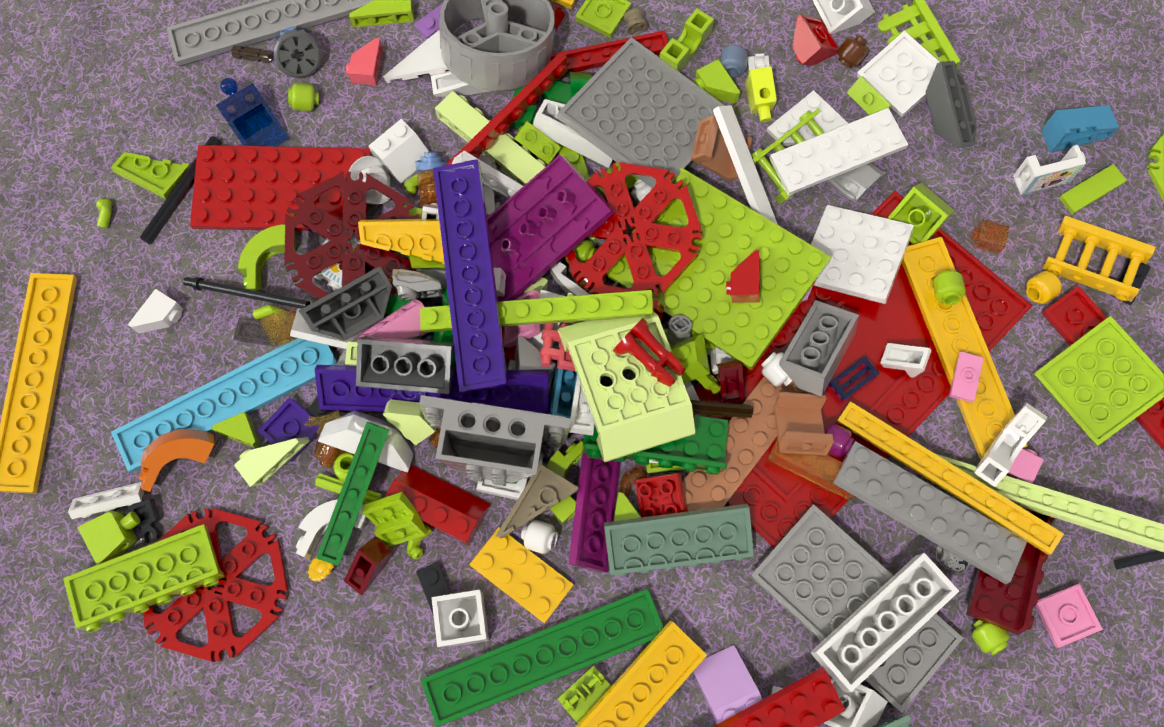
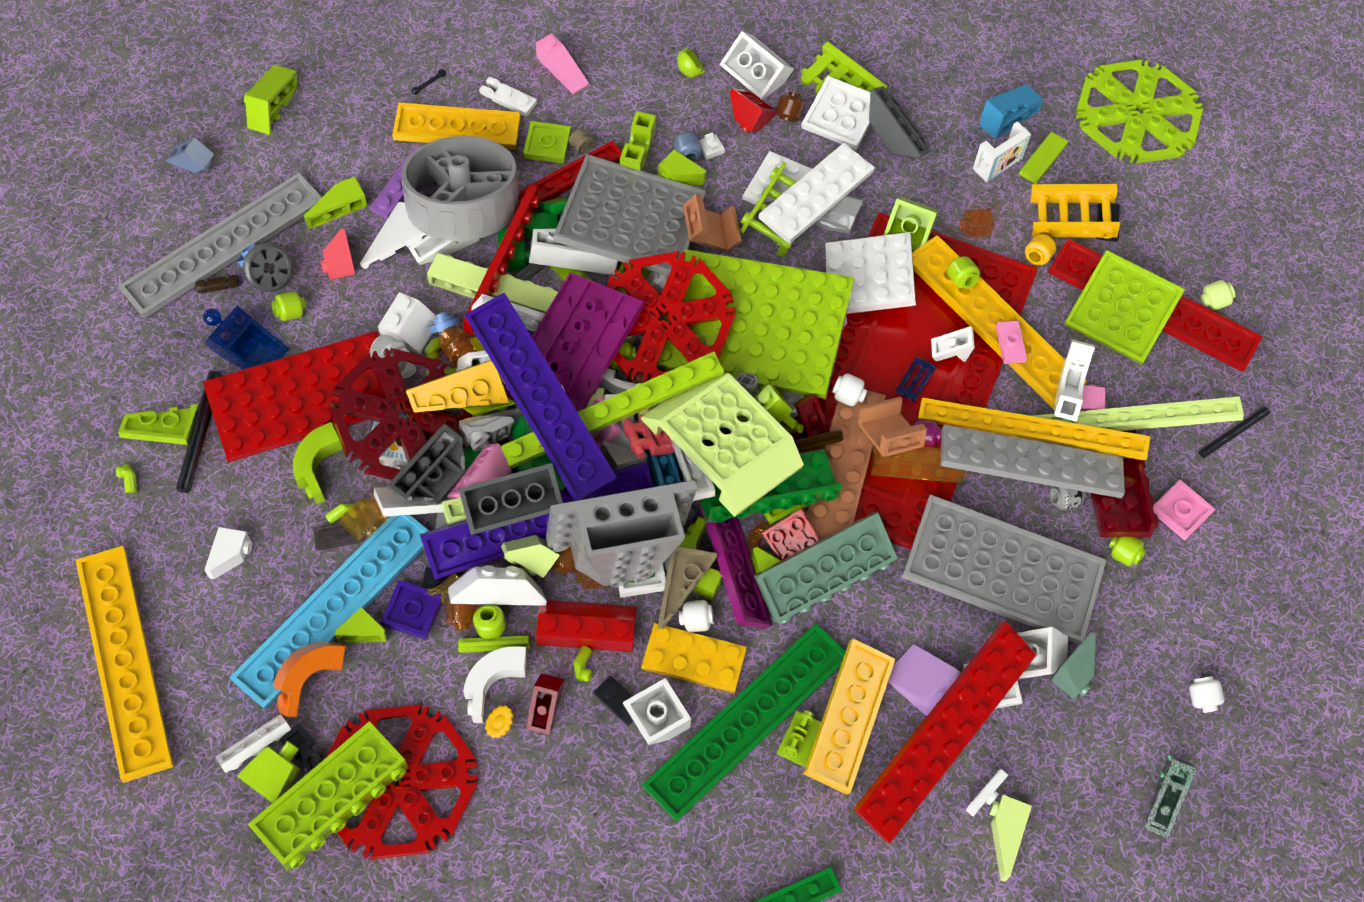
camera: 30 degrees left, 10 degrees down
(198, 284) = (258, 510): black bar -> none
(262, 463) = (401, 645): yellowish green slope -> none
(352, 494) = (507, 637): green plate -> none
(394, 519) = (555, 648): lime slope -> none
(537, 142) = (538, 272): lime hinge -> none
(630, 345) = (756, 412): red piece -> none
(743, 161) = (735, 224): white tile -> none
(745, 280) = (790, 321): red slope -> none
(761, 92) = (725, 165): neon yellow torso -> none
(819, 347) = (876, 358): light grey slope -> none
(868, 96) = (820, 141): lime plate -> none
(884, 622) = (1036, 566): white brick -> none

